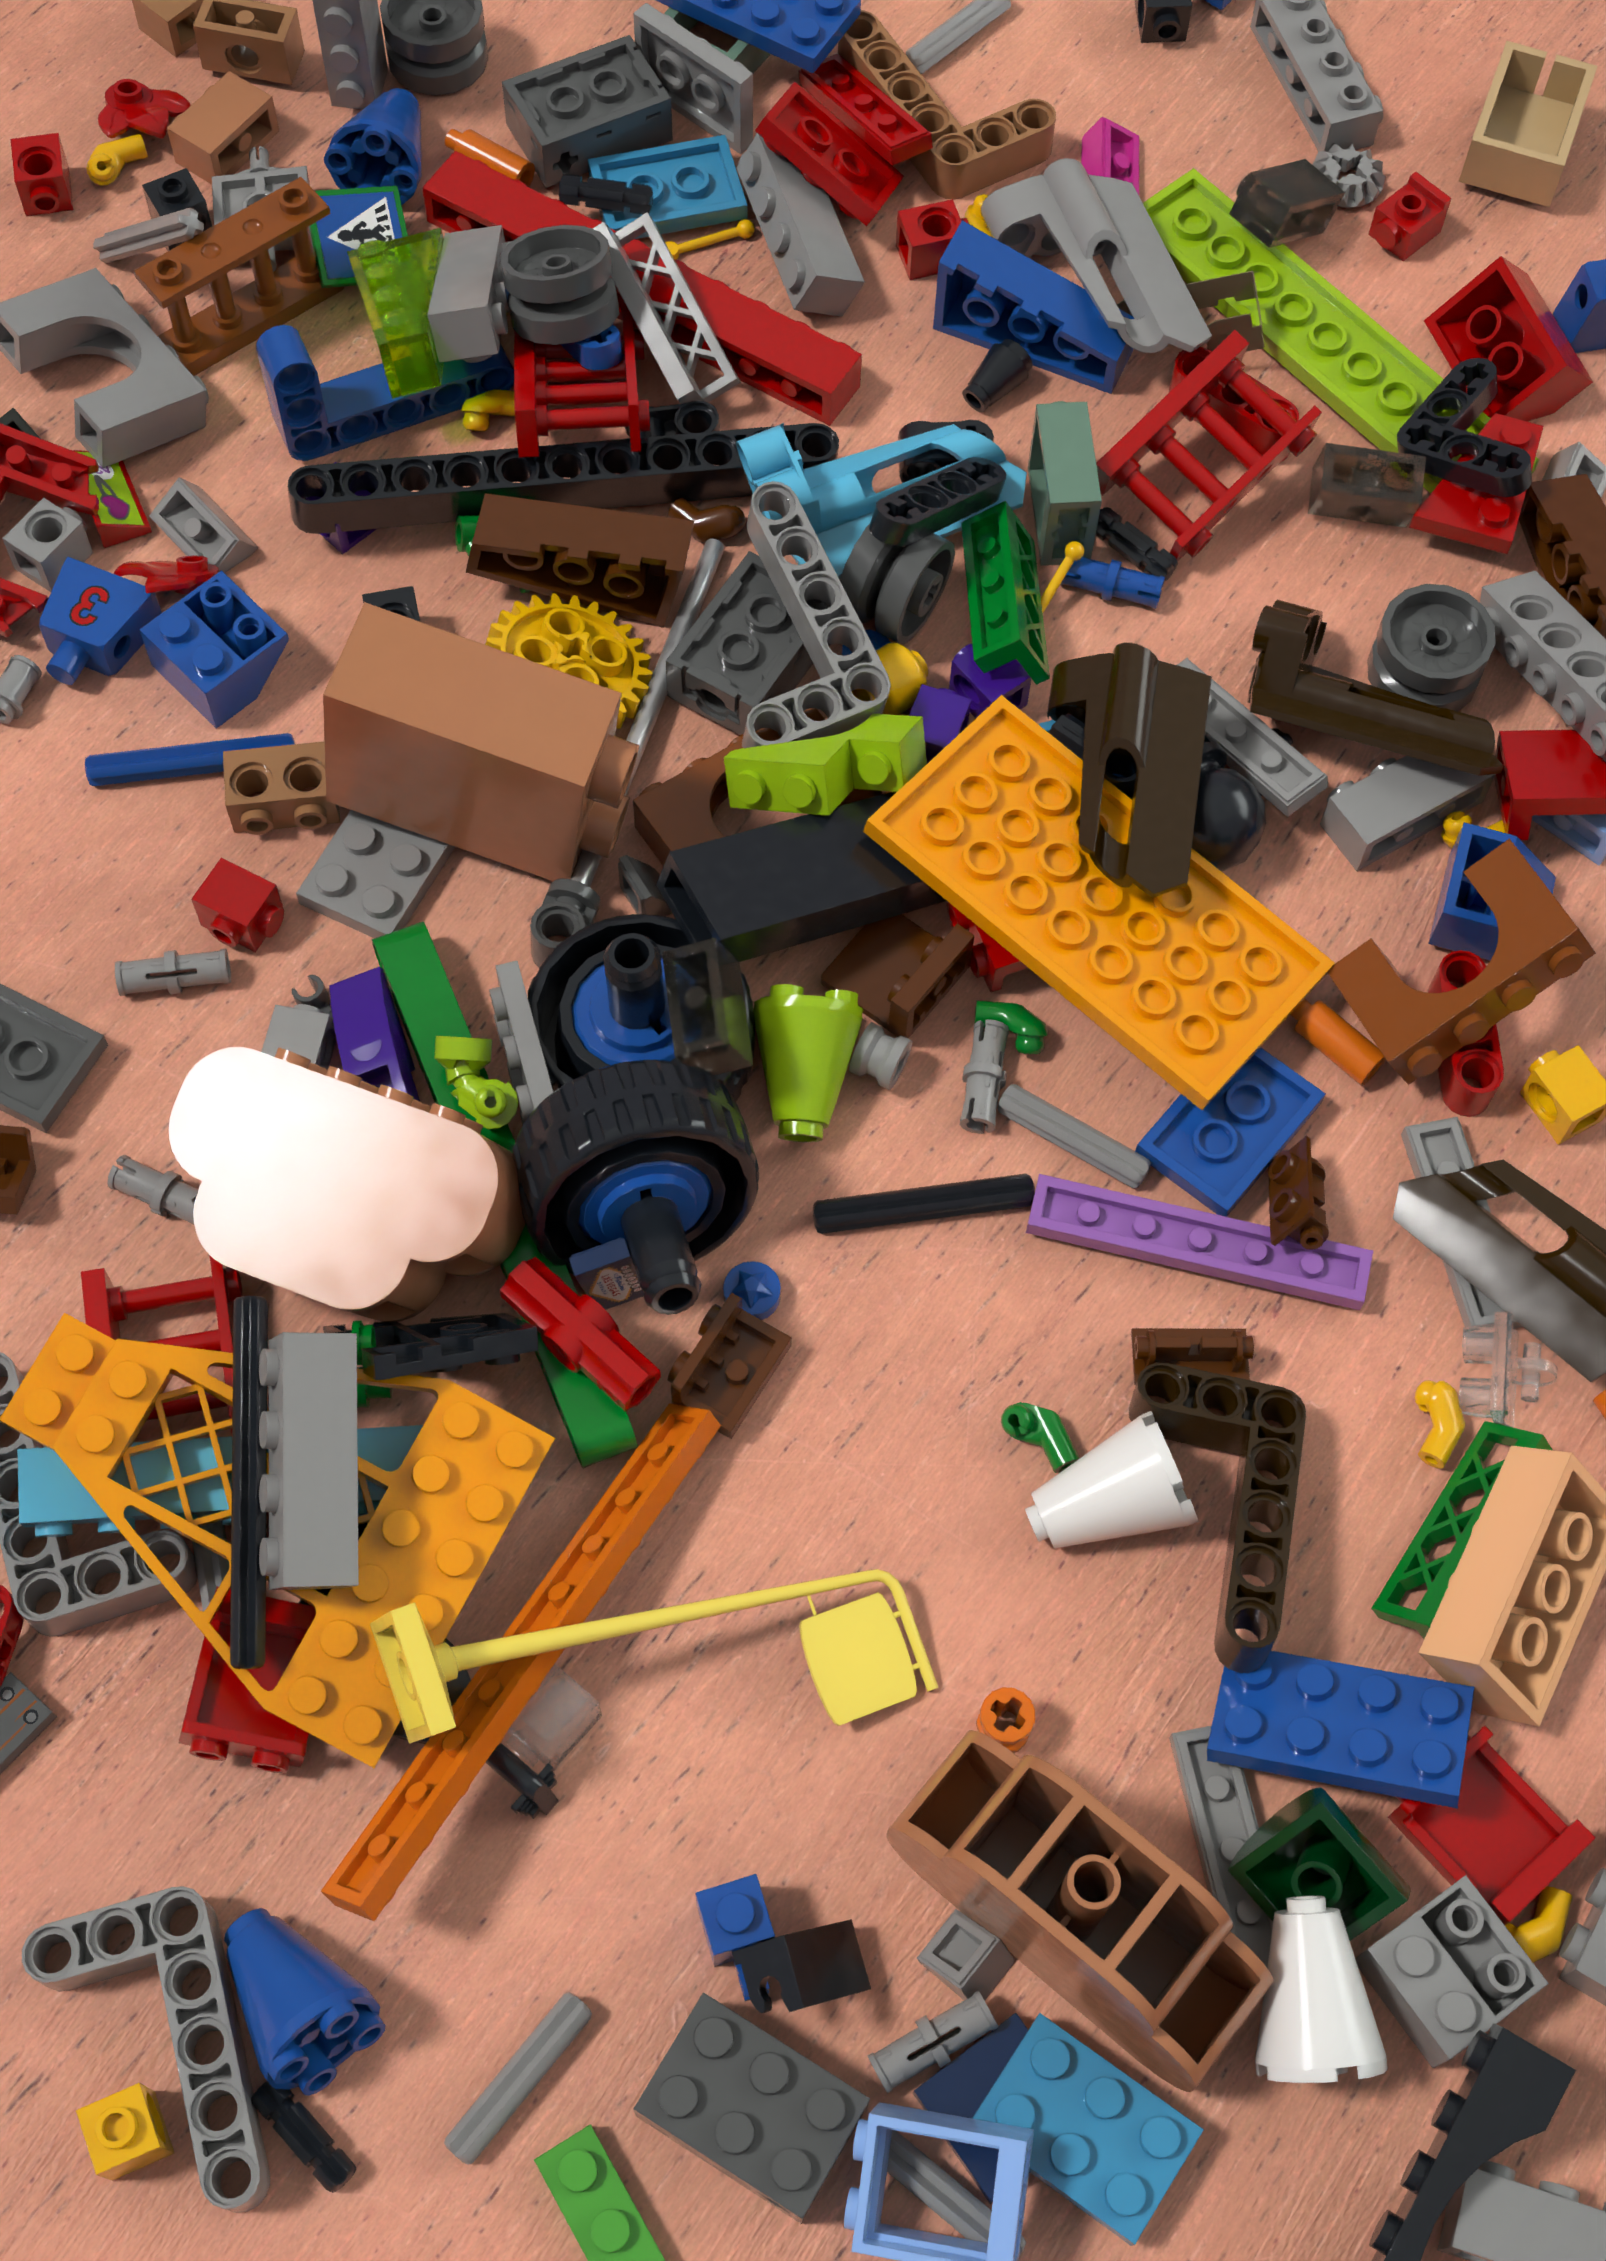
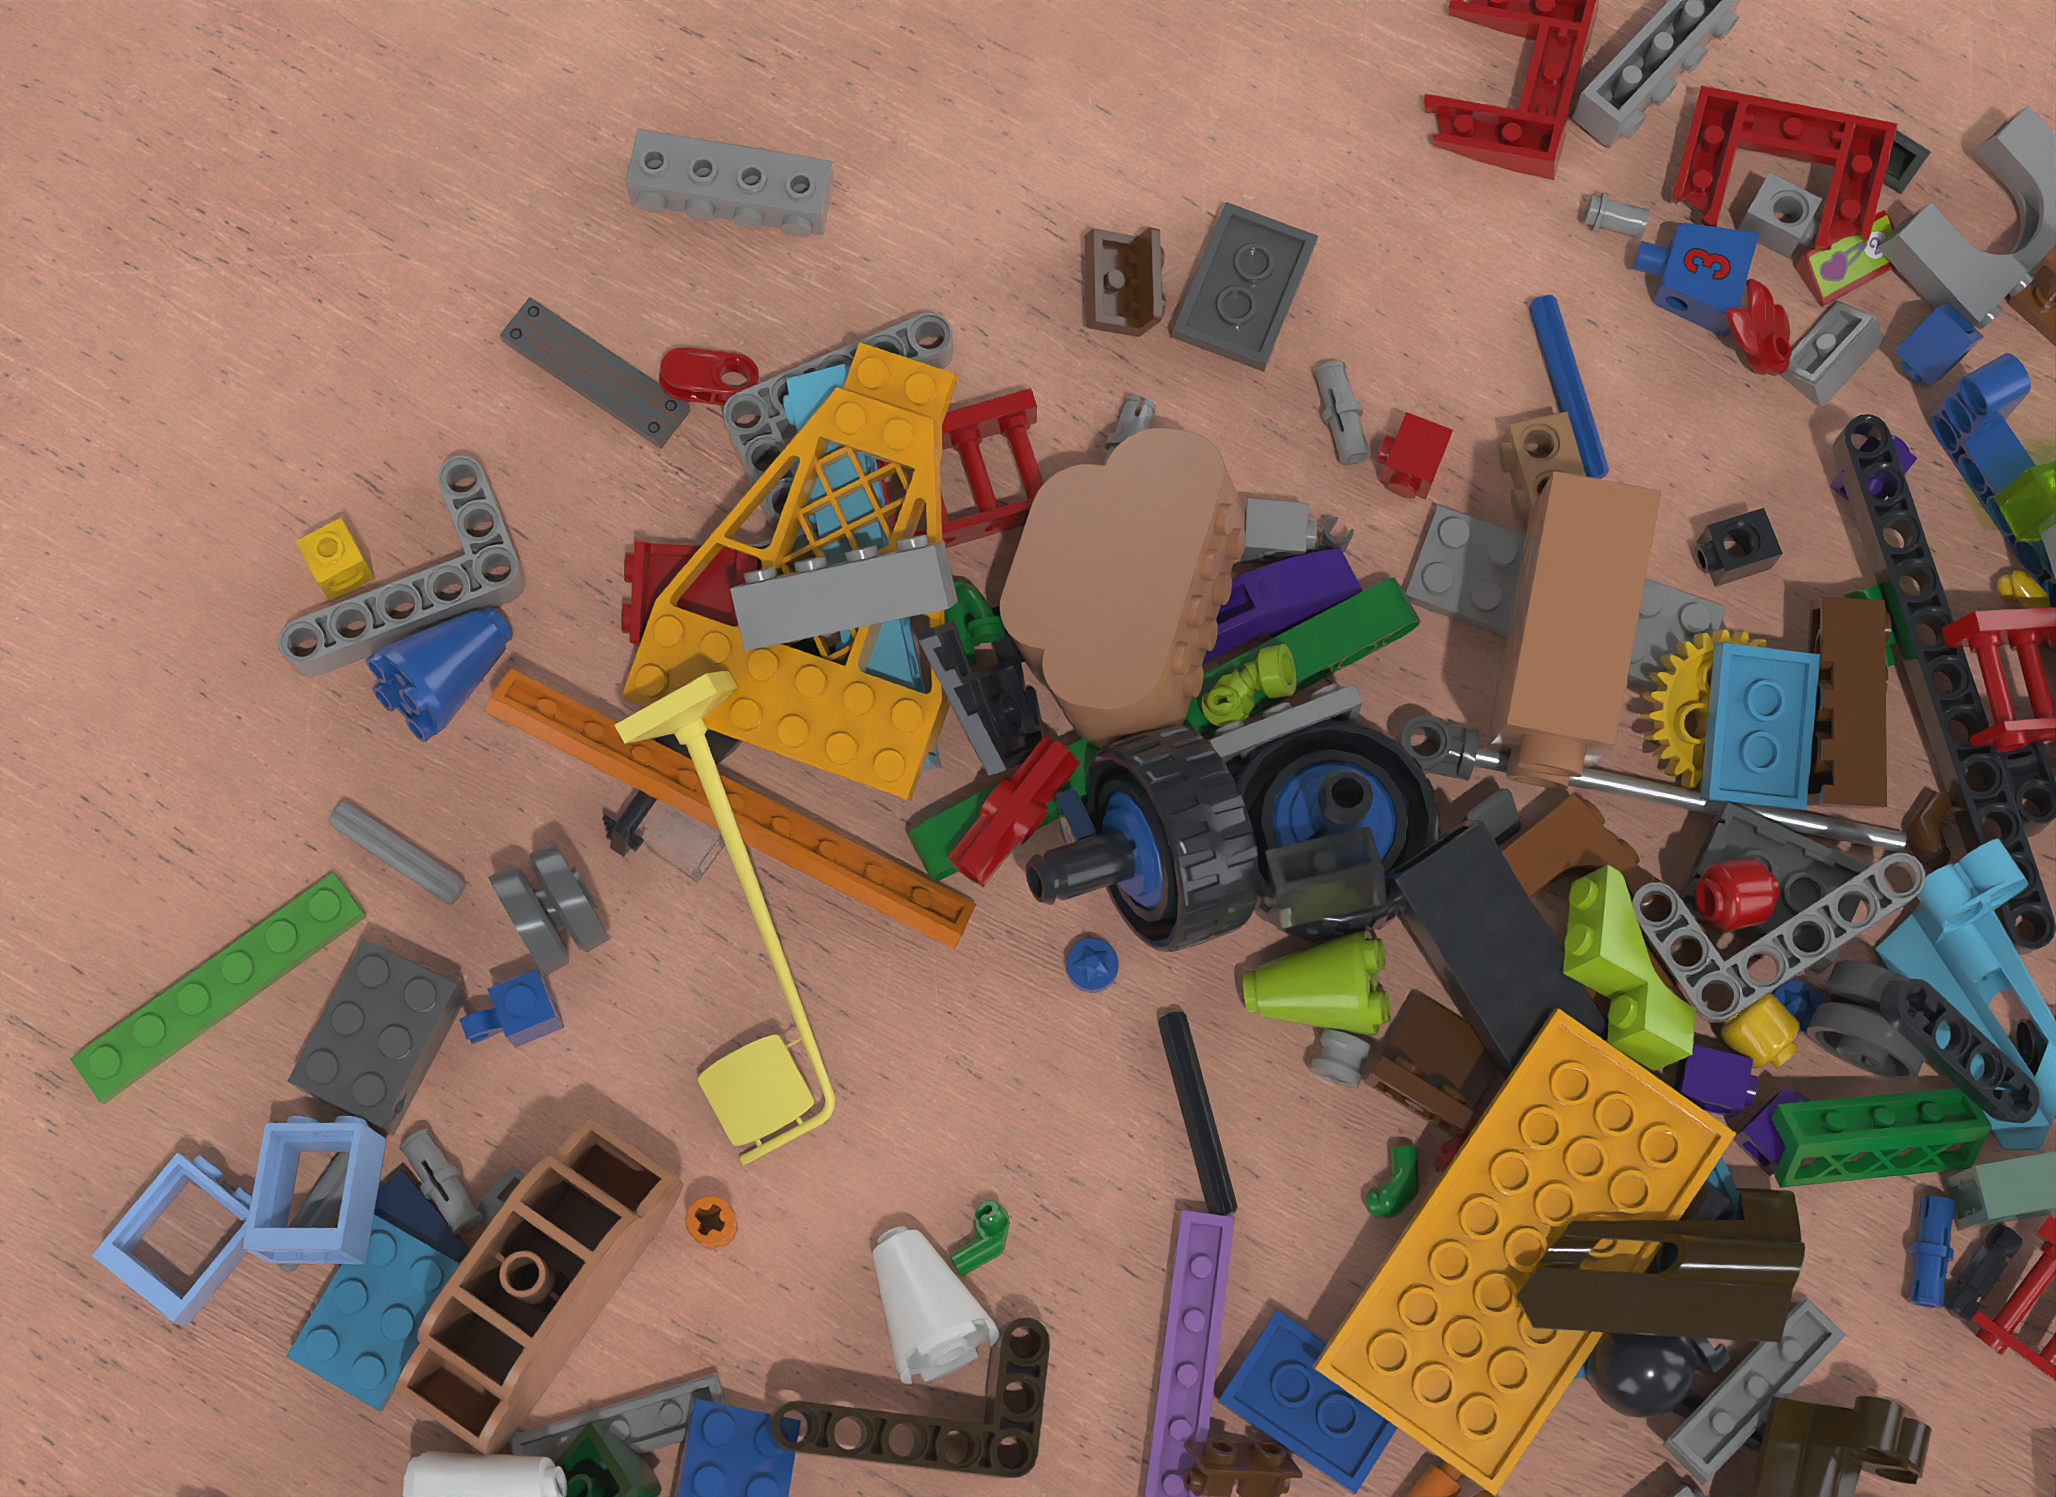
camera: 85 degrees right, 10 degrees up
(215, 648) = (1686, 385): blue slope -> none
(220, 431) = (1937, 345): none -> blue brick
(248, 1466) = (730, 568): black axle -> none
(304, 2136) = (340, 698): black axle -> none
(592, 622) = (1760, 726): none -> dark azure plate
(621, 1873) = (550, 907): none -> dark grey wheel
(728, 1364) = (1012, 949): reddish brown bracket -> none
(765, 656) = (1736, 893): none -> red head
(808, 1964) = (483, 1065): black hinge -> none
(984, 1076) = (1336, 1160): light grey pin -> none
(1073, 552) = (1947, 1204): yellow hinge -> none
(1074, 1136) = (1285, 1251): light grey axle -> none
(1201, 1349) = (1074, 1375): reddish brown hinge -> none

